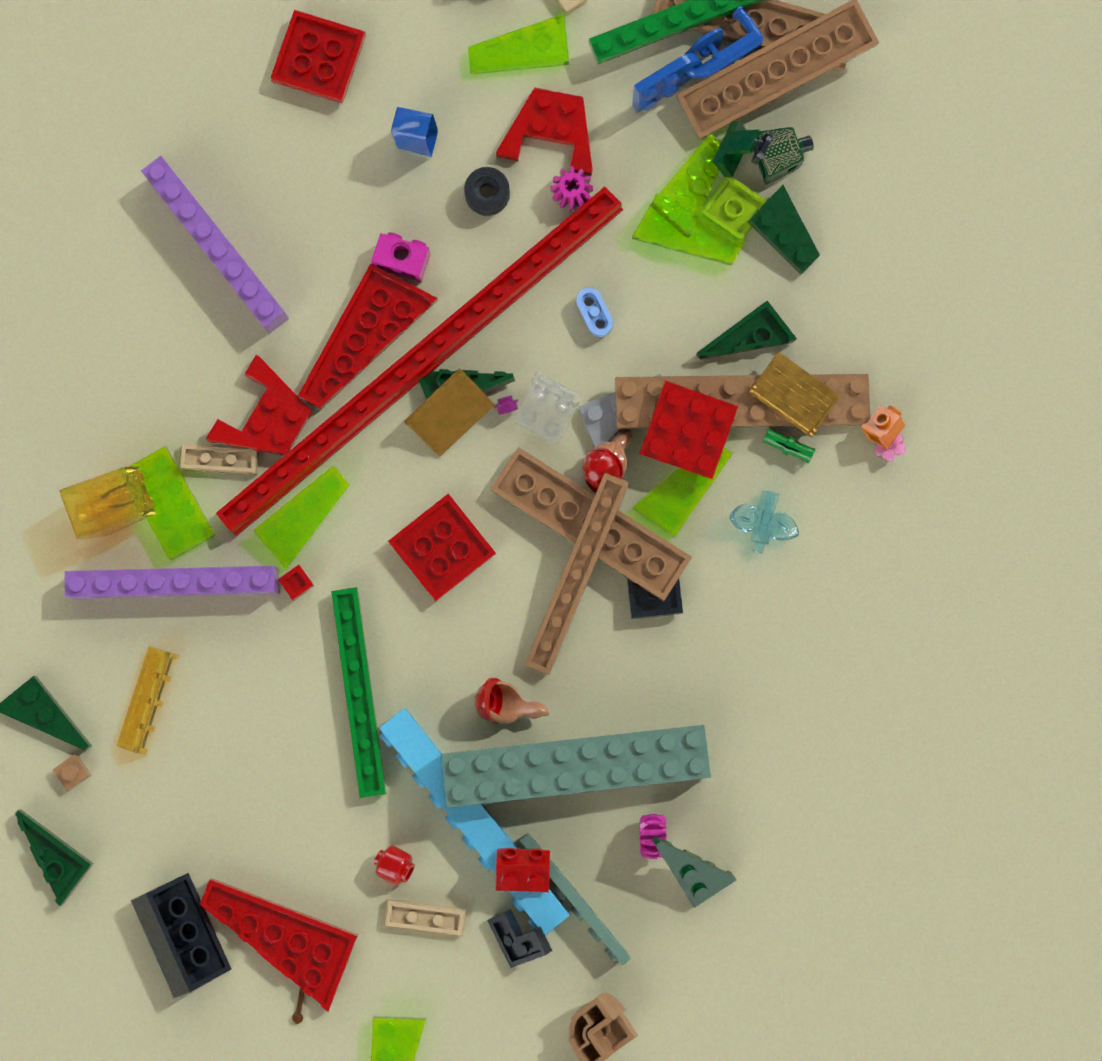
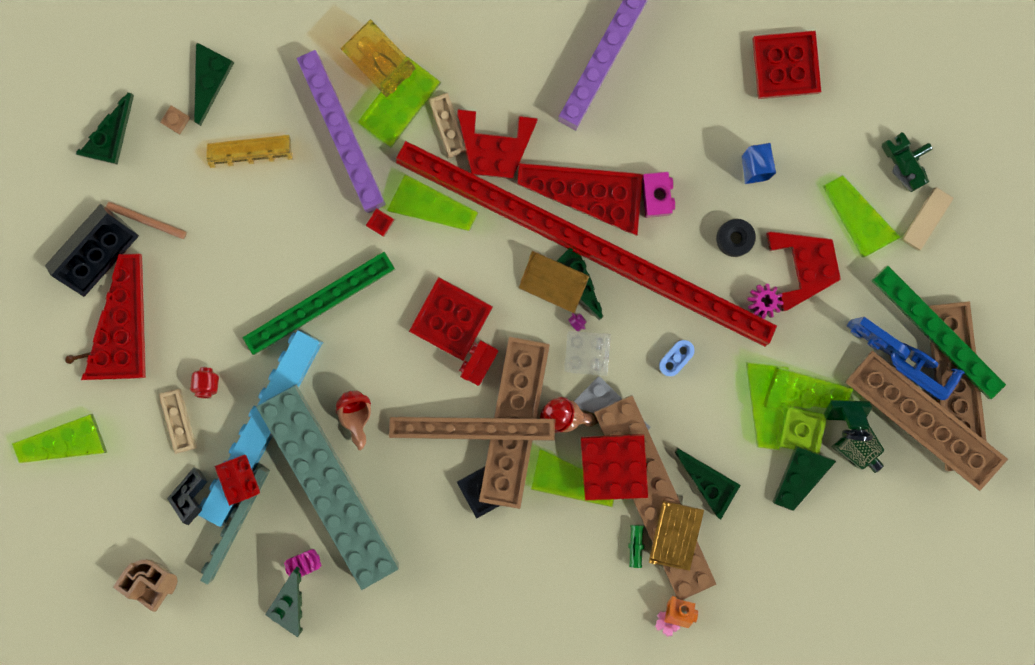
camera: 70 degrees right, 5 degrees up
(174, 855) = (146, 220): none -> nougat bar
(506, 535) = (479, 363): none -> red bracket
(764, 521) = (570, 551): clear light blue plant -> none

